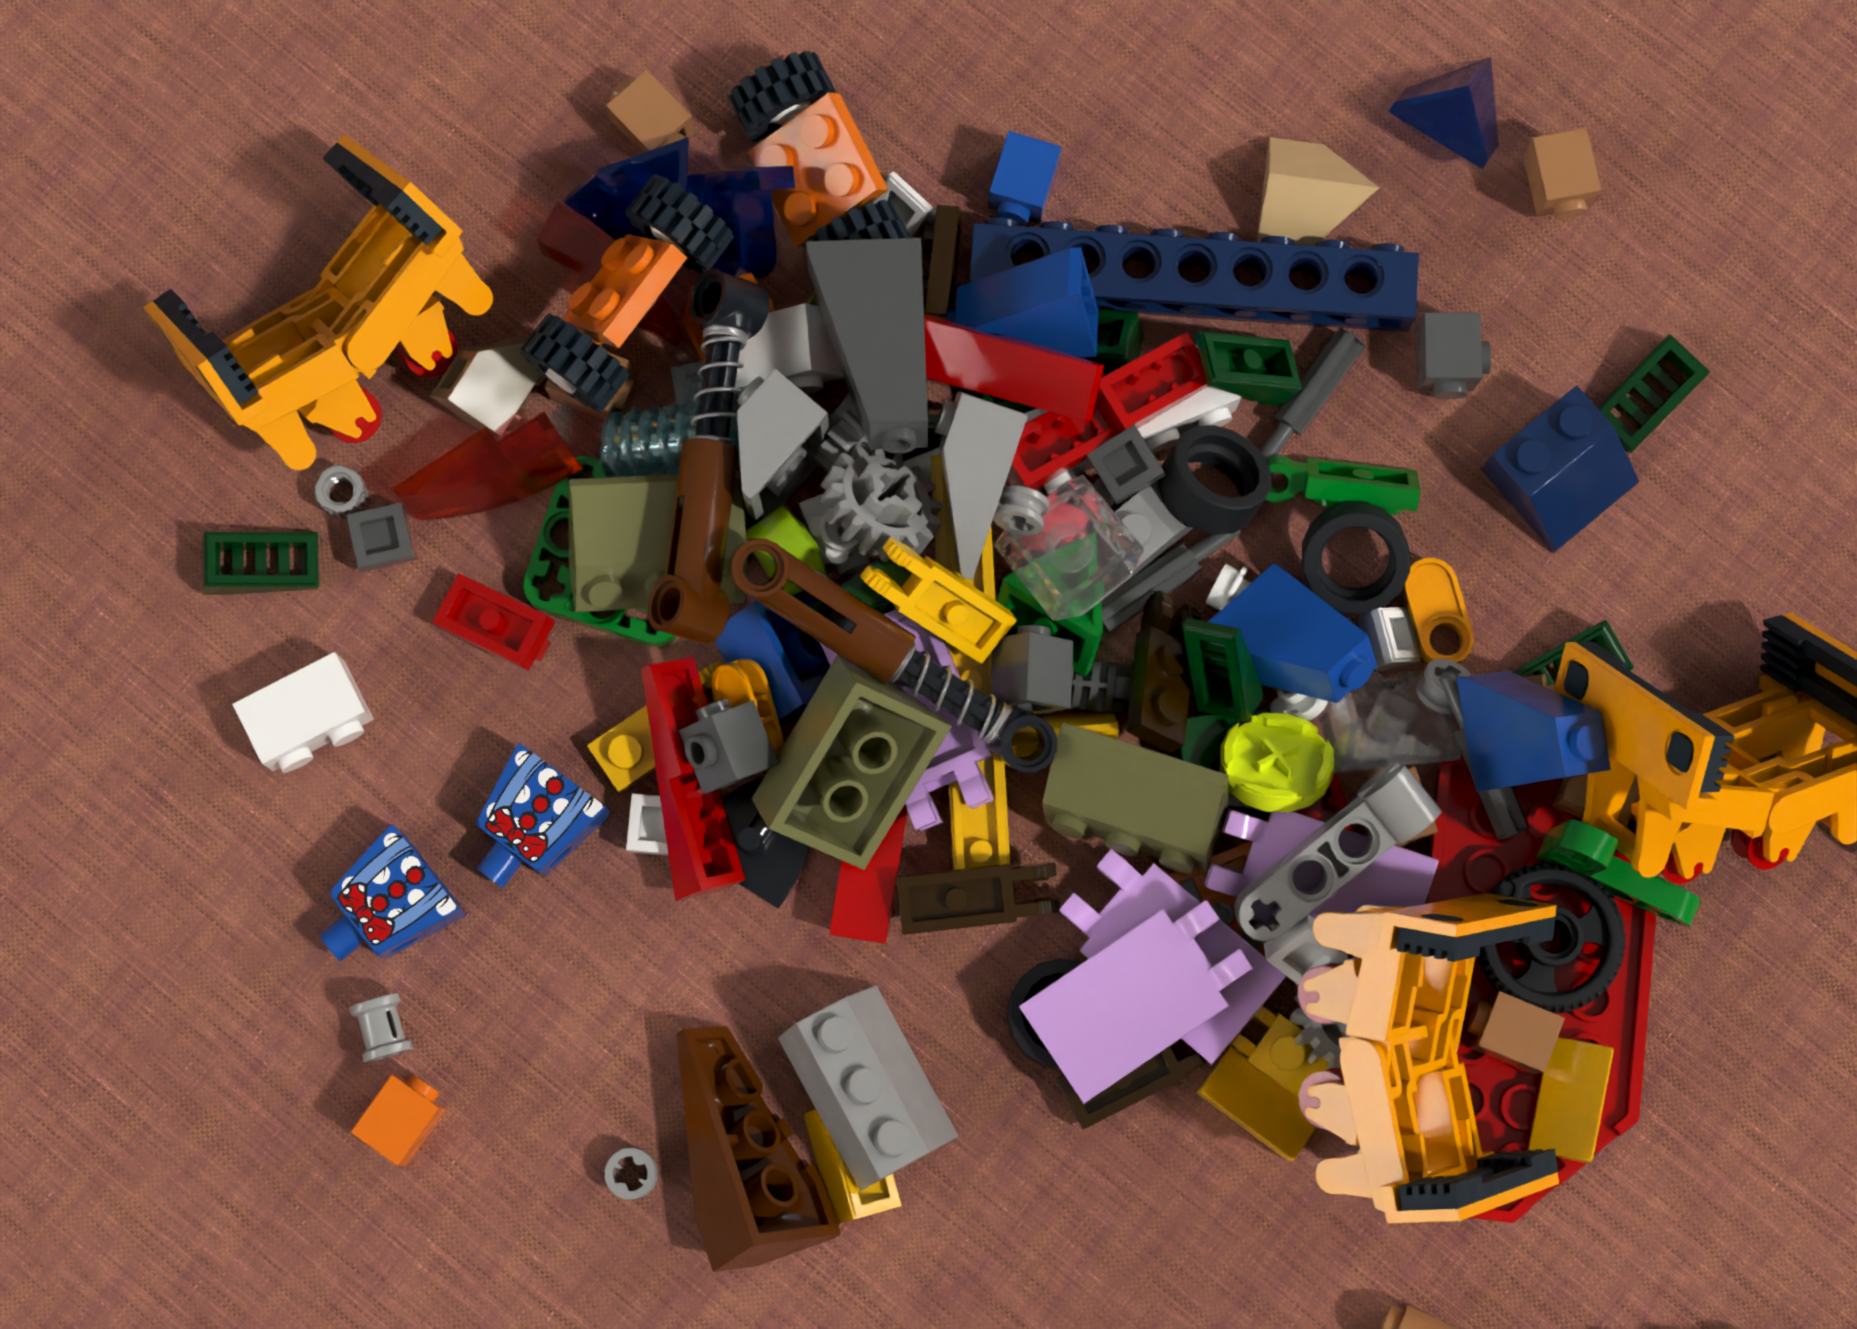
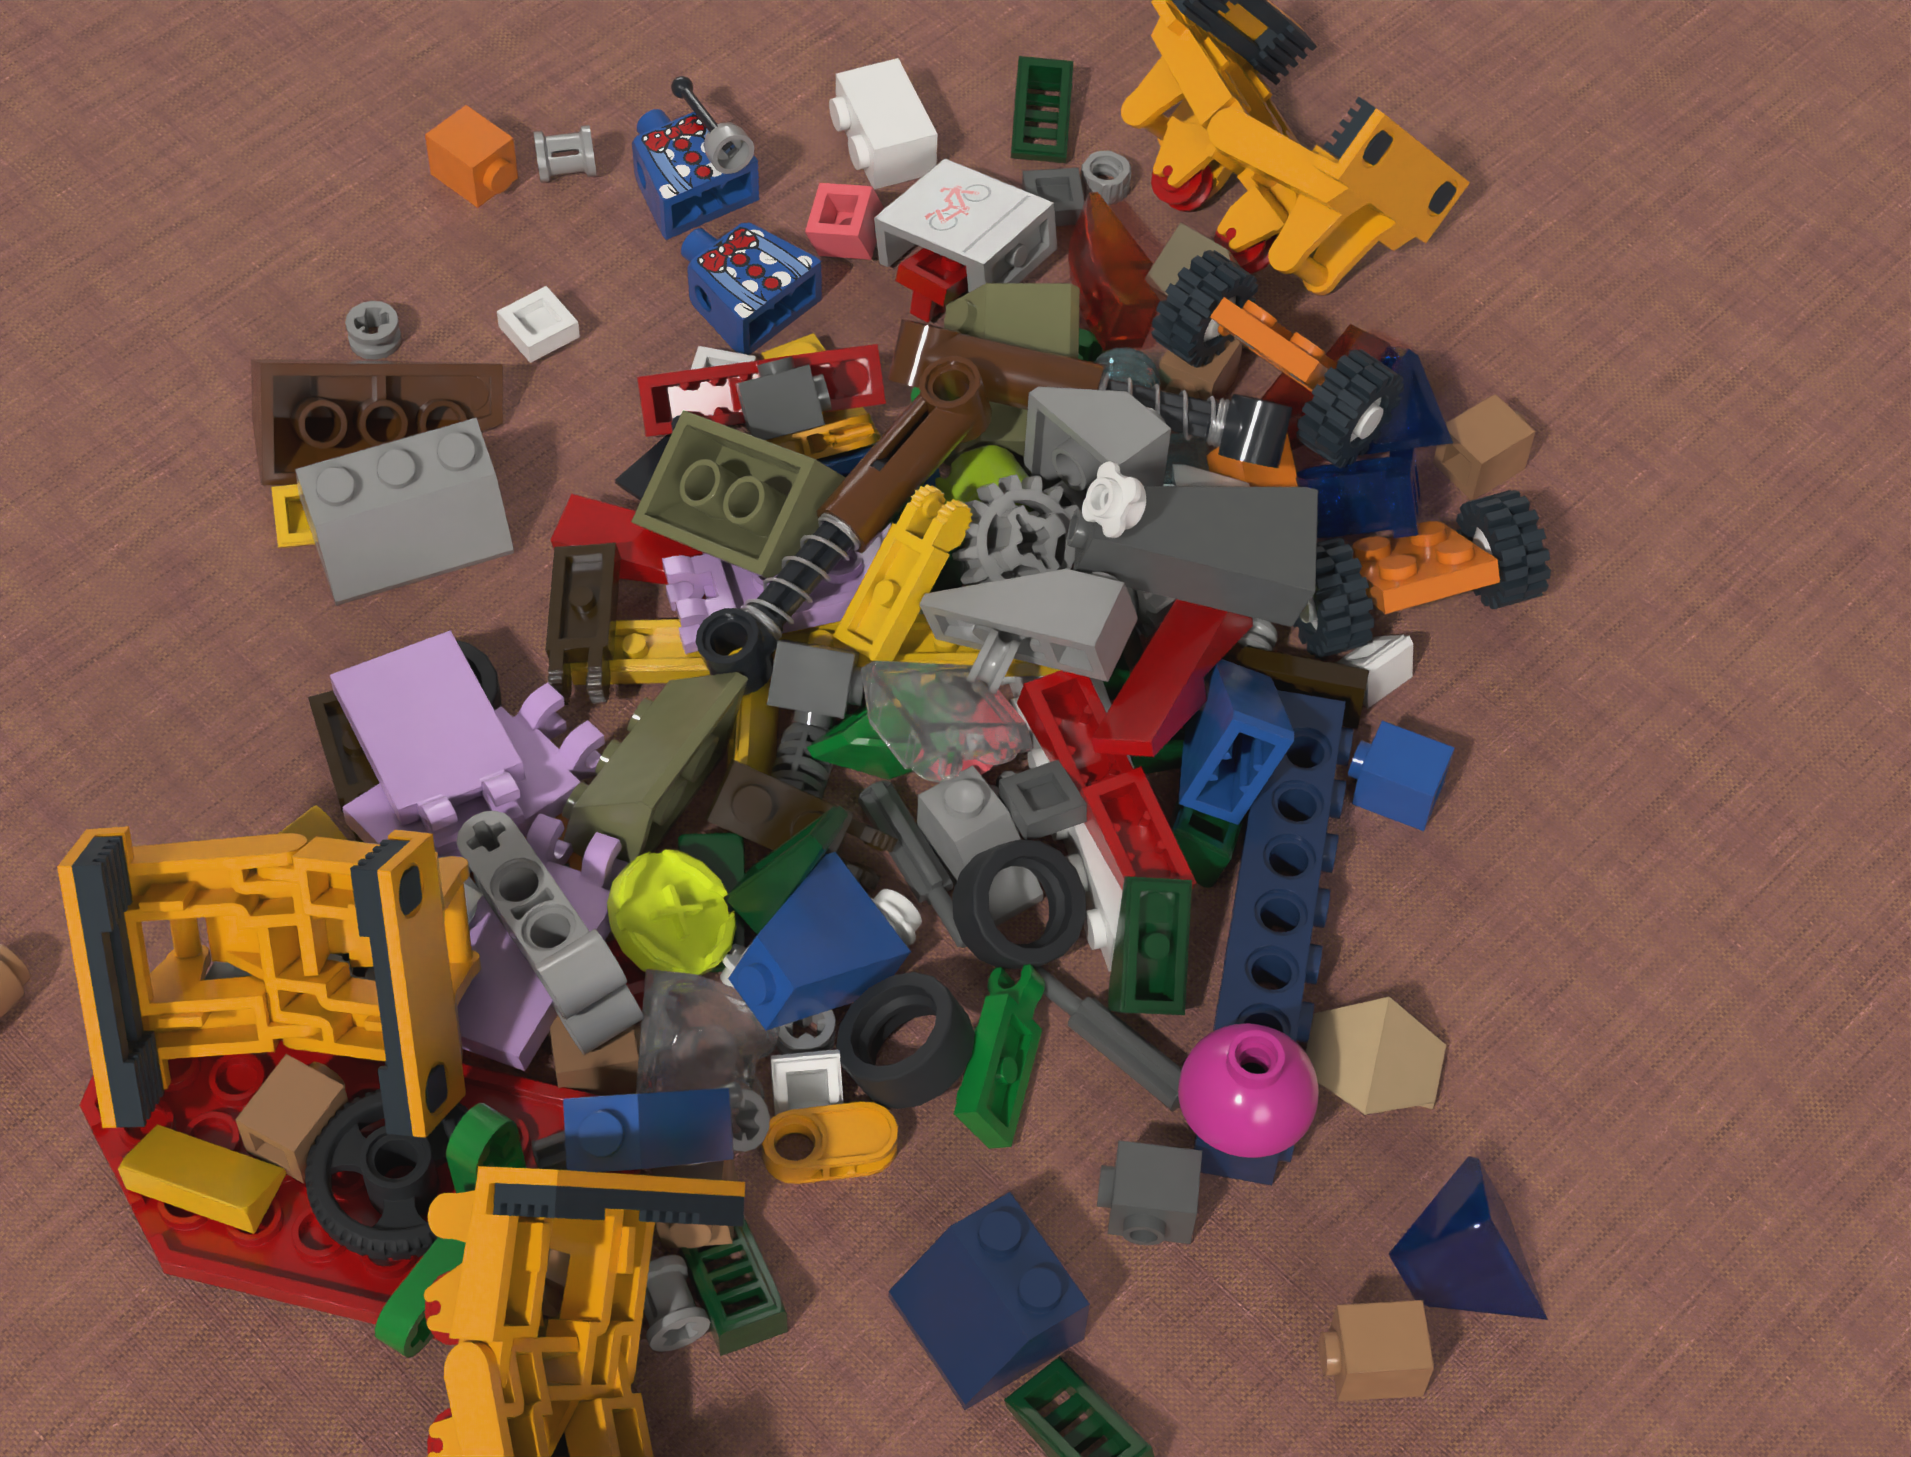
camera: 95 degrees right, 25 degrees down
(388, 854) = (720, 136): none -> light grey hinge
(450, 611) = (971, 220): none -> panel
(454, 750) = (844, 221): none -> coral plate
(609, 1012) = (538, 324): none -> white plate
(902, 400) = (1114, 500): none -> white plate
(1371, 299) = (1246, 1110): none -> dark pink piece

